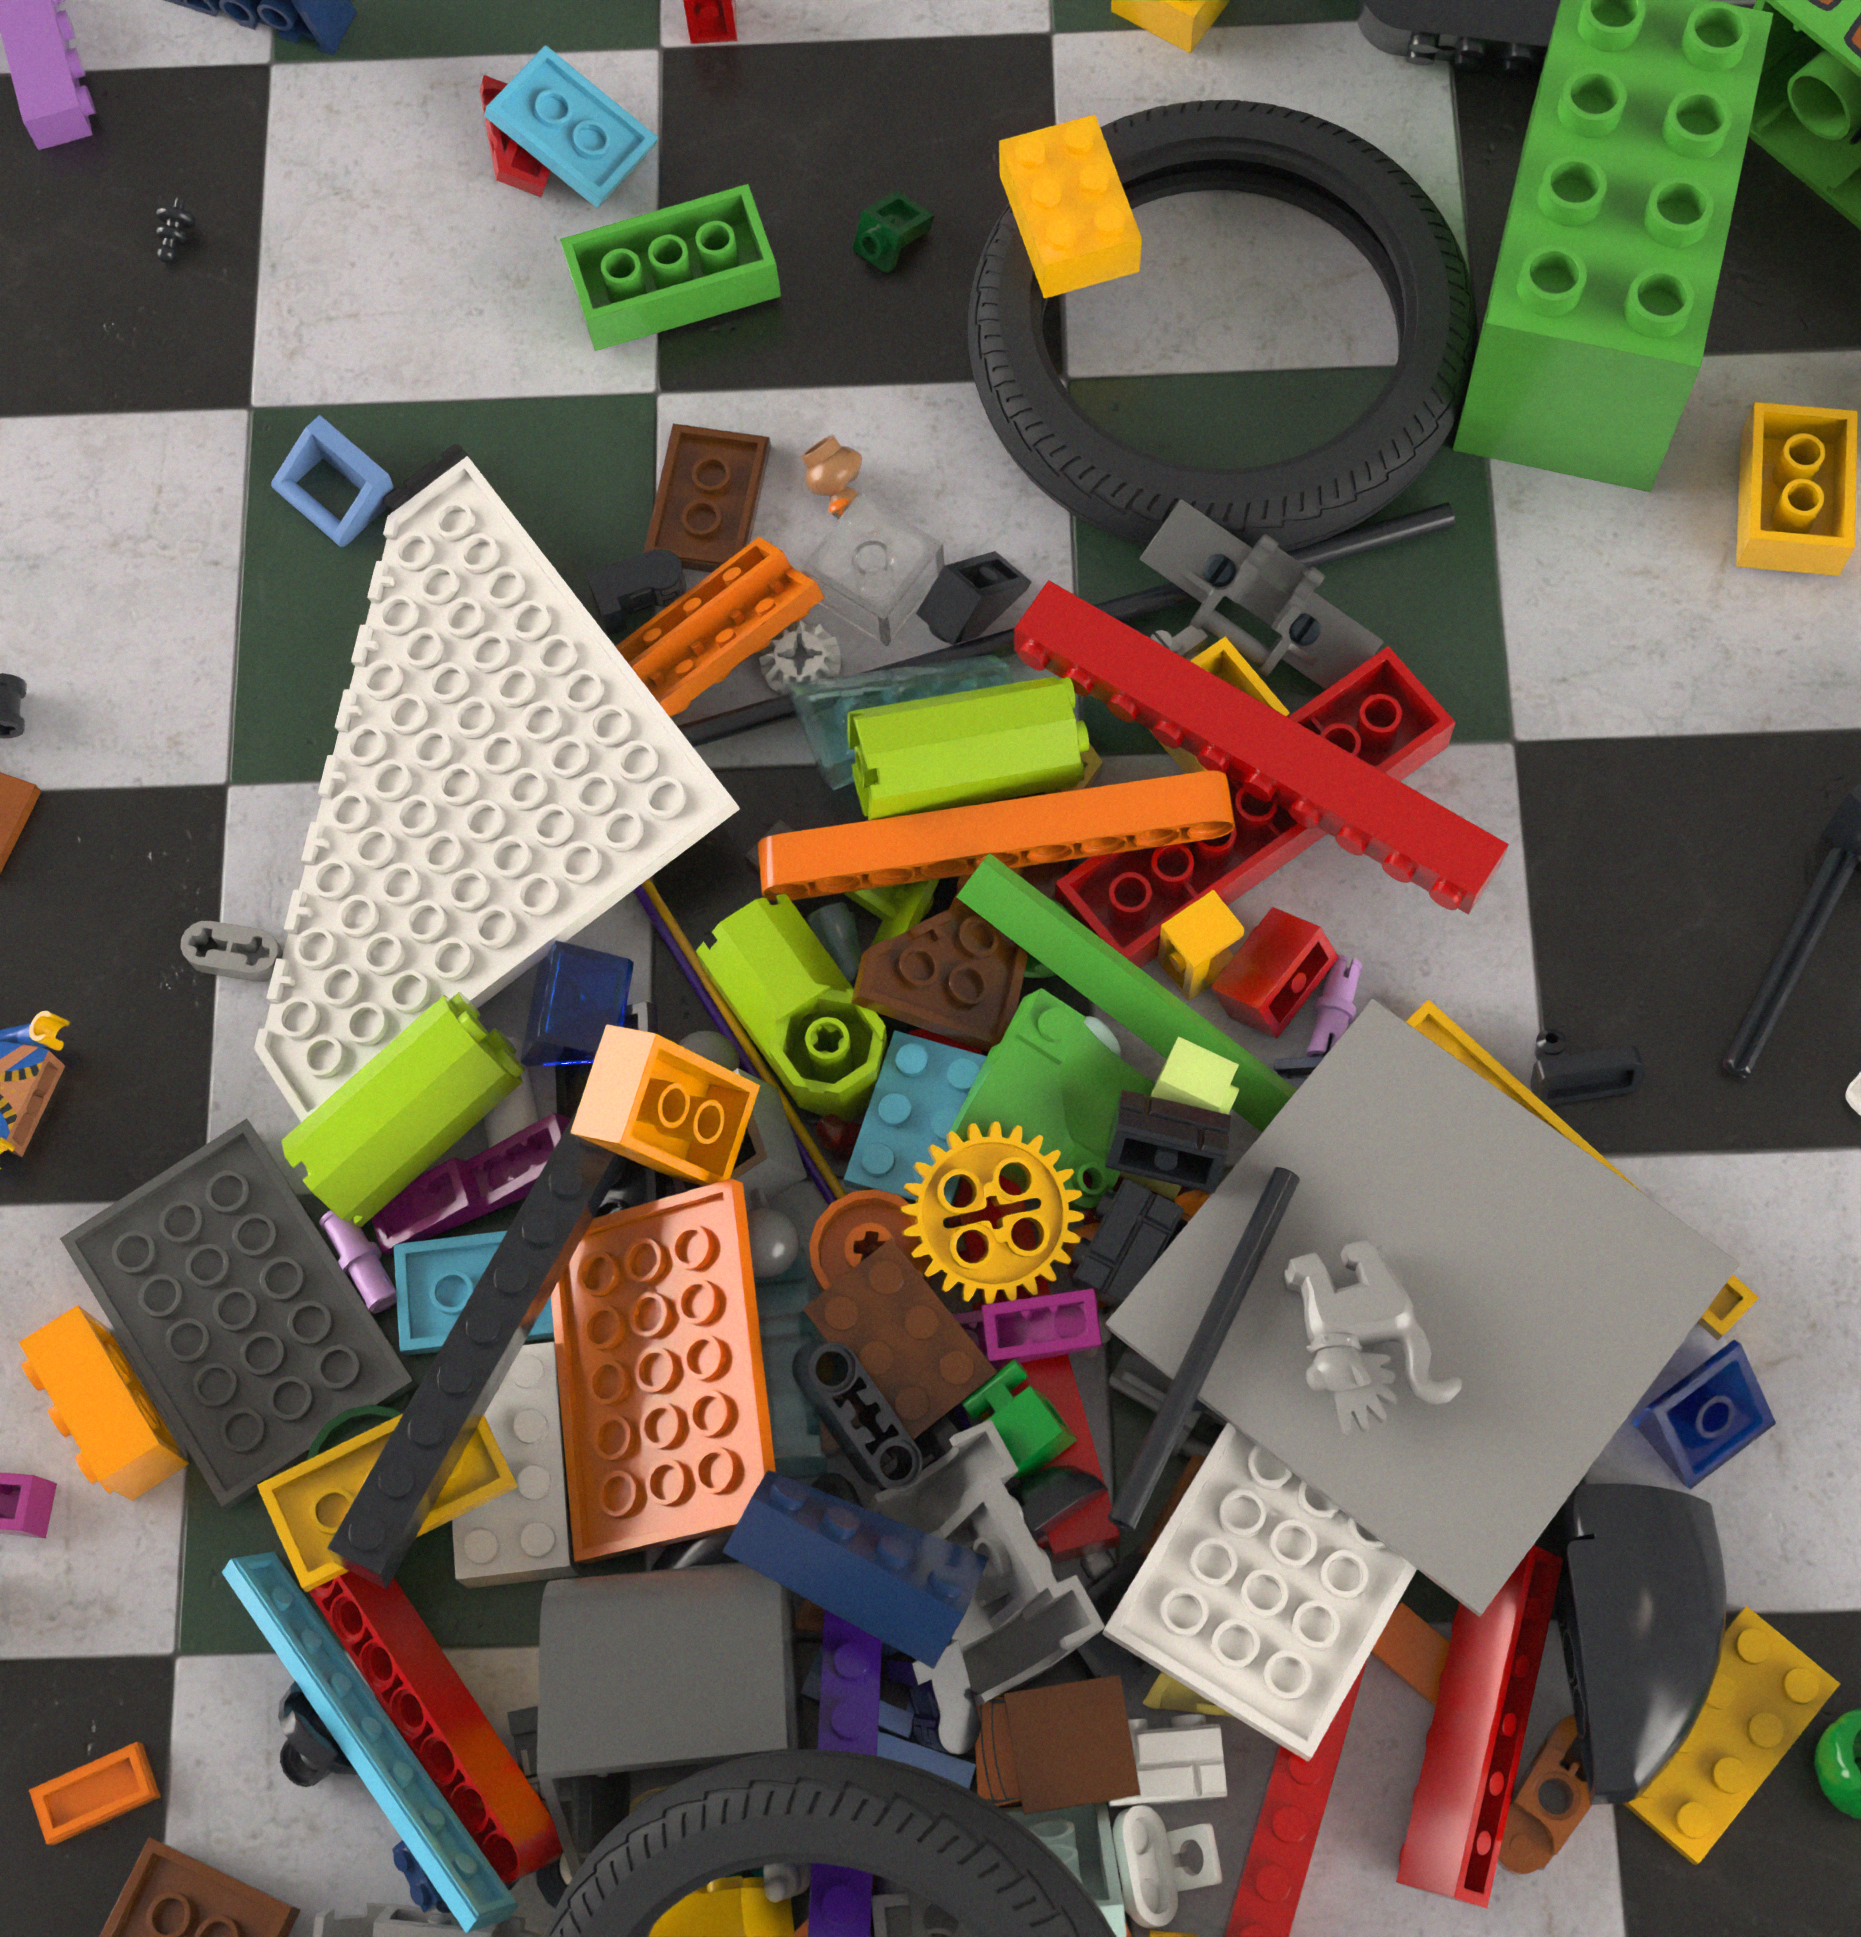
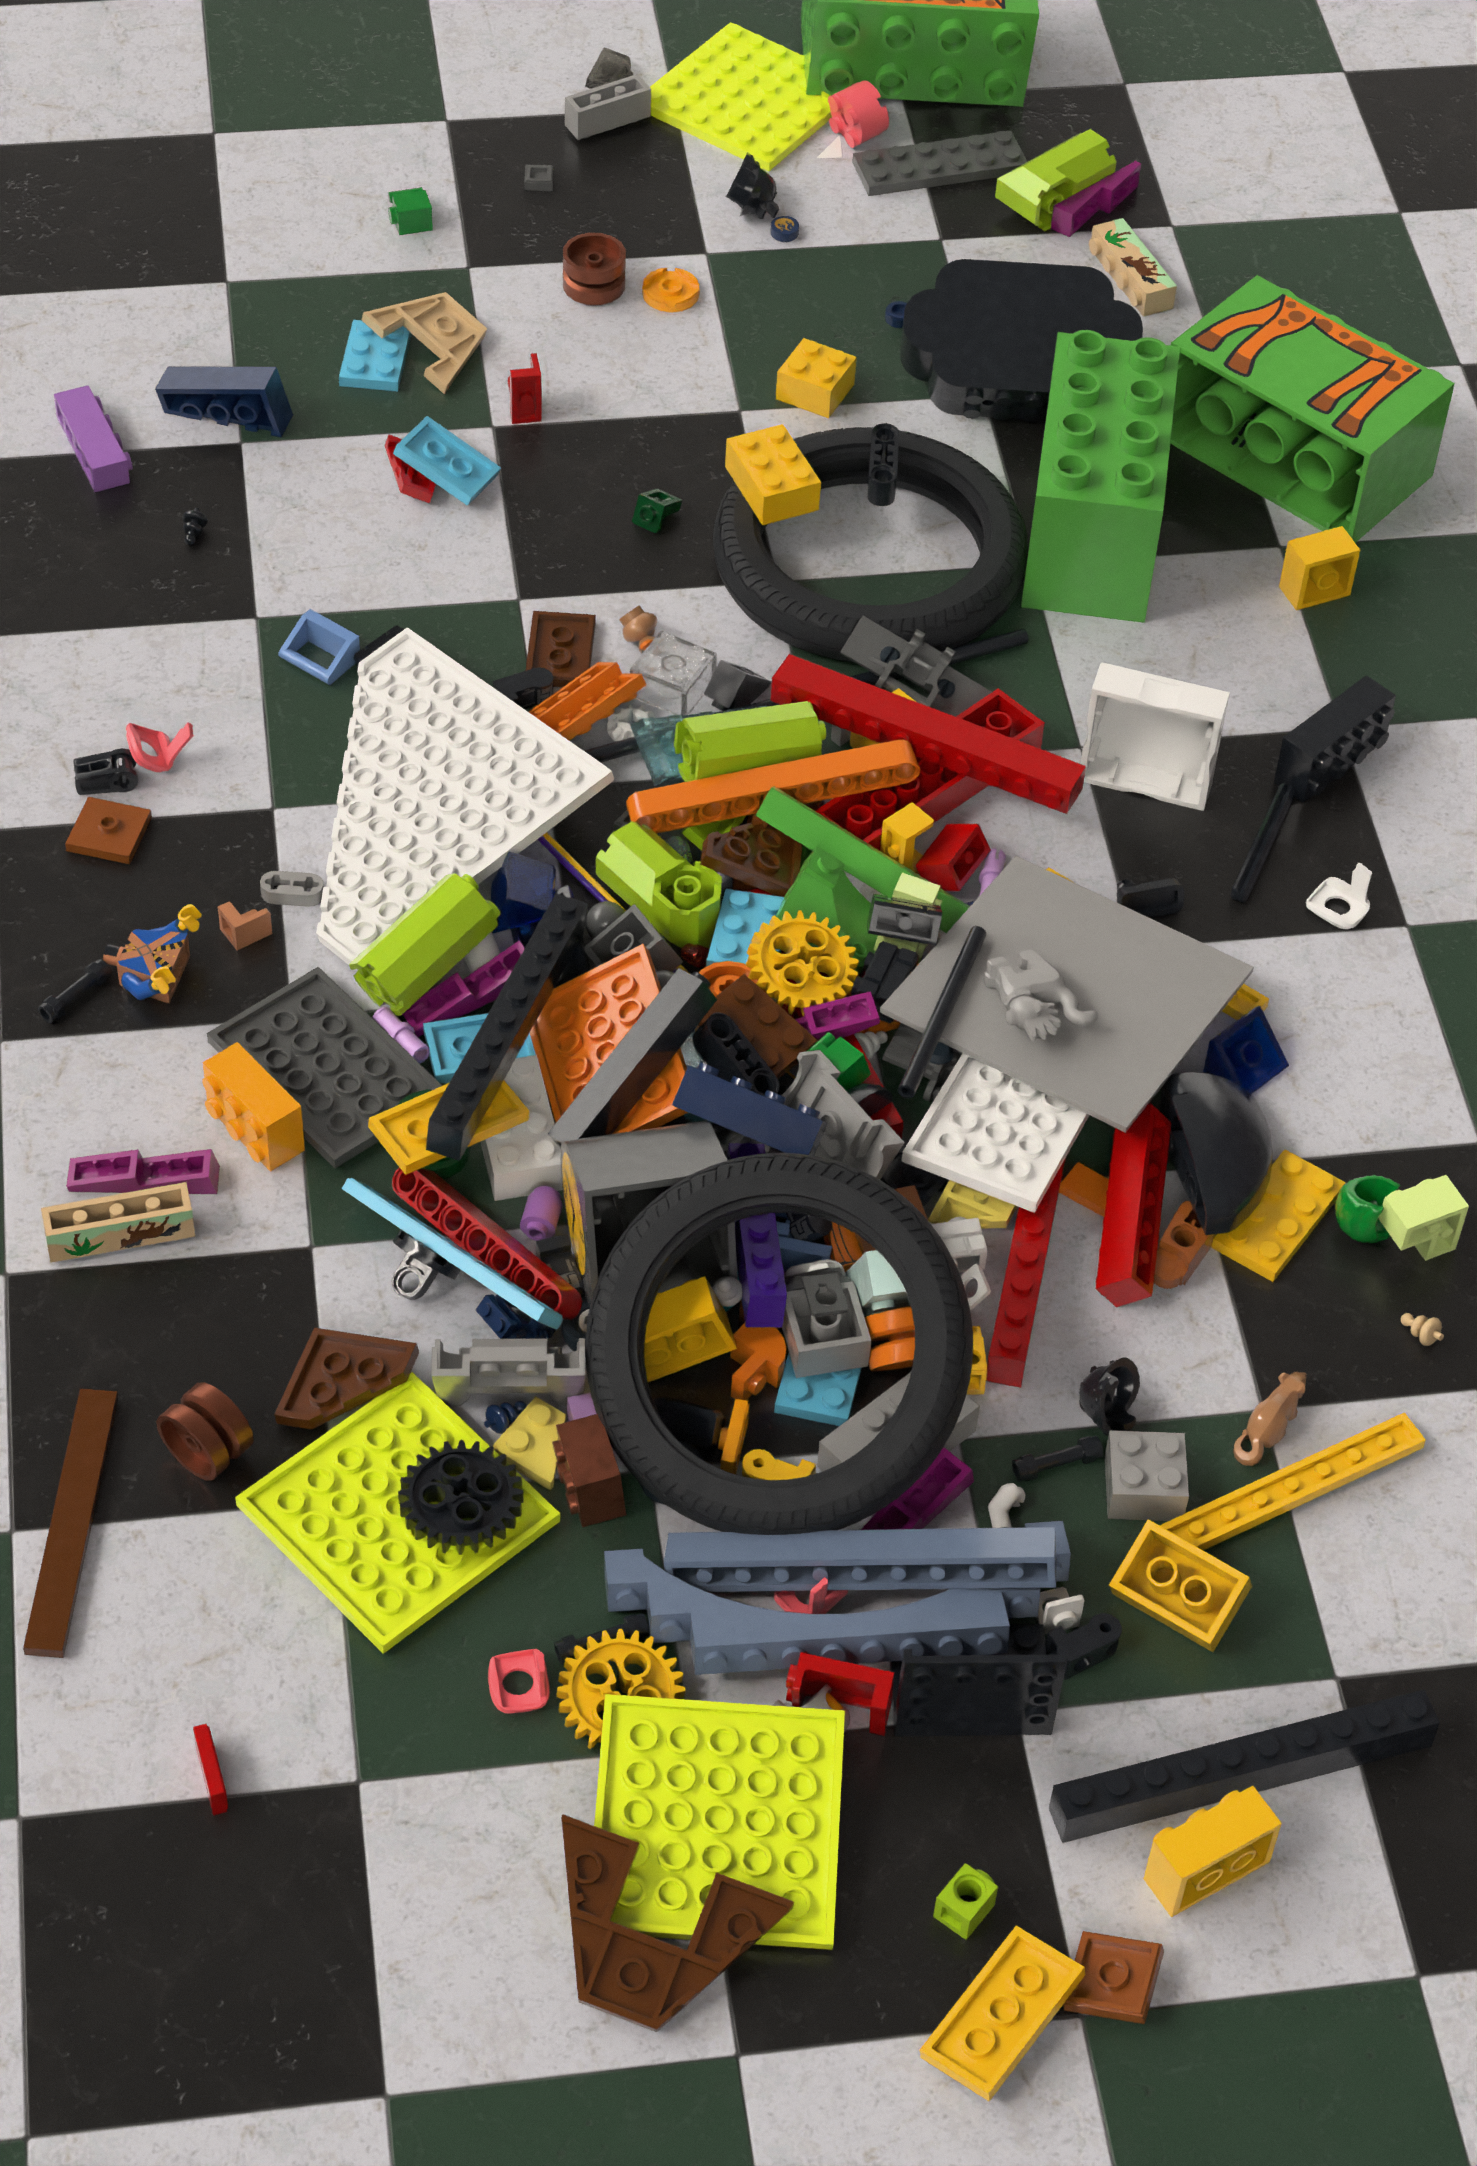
camera: 15 degrees left, 20 degrees down
(68, 649) = (160, 743): none -> coral piece
(94, 1793) = (272, 1316): orange tile -> none
(149, 1022) = (244, 928): none -> nougat panel
(520, 1641) = (541, 1213): none -> medium lavender brick
(665, 1107) = (598, 904): light orange brick -> none
(671, 267) = (521, 528): bright green brick -> none
(683, 1431) = (637, 1059): none -> brick
(1258, 168) = (883, 464): none -> black beam
(1632, 776) = (1153, 735): none -> white tile
(1797, 489) = (1231, 609): yellow brick -> none

